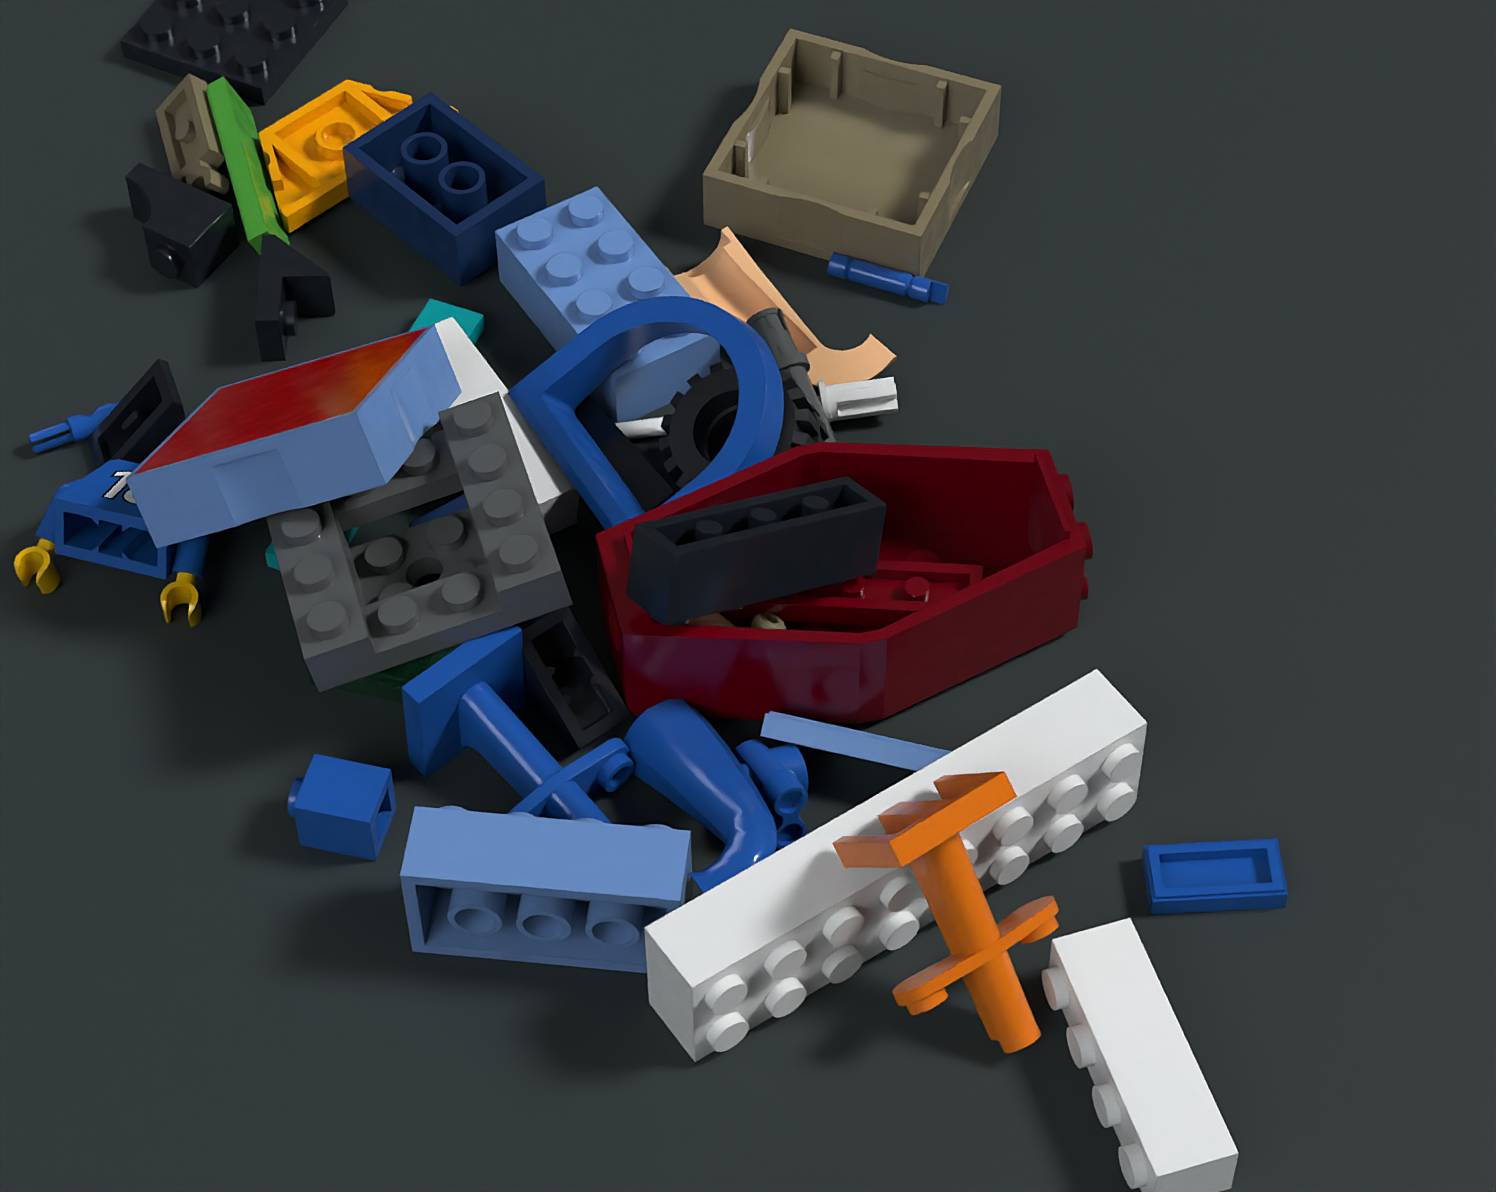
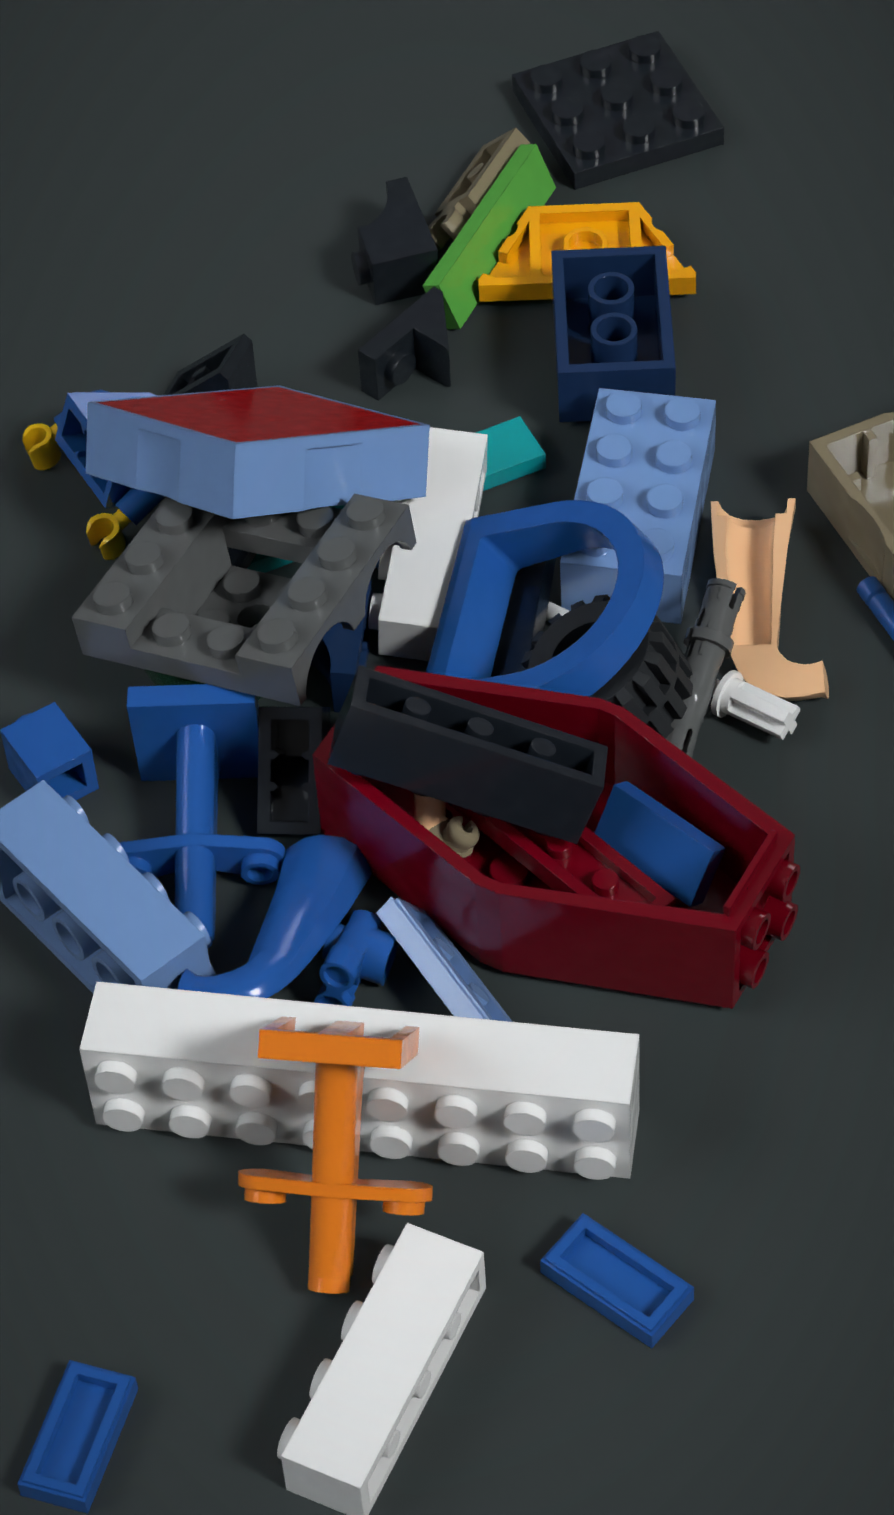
camera: 45 degrees right, 0 degrees up
(80, 426) = (177, 359): blue pin -> none
(935, 532) = (660, 843): none -> blue tile

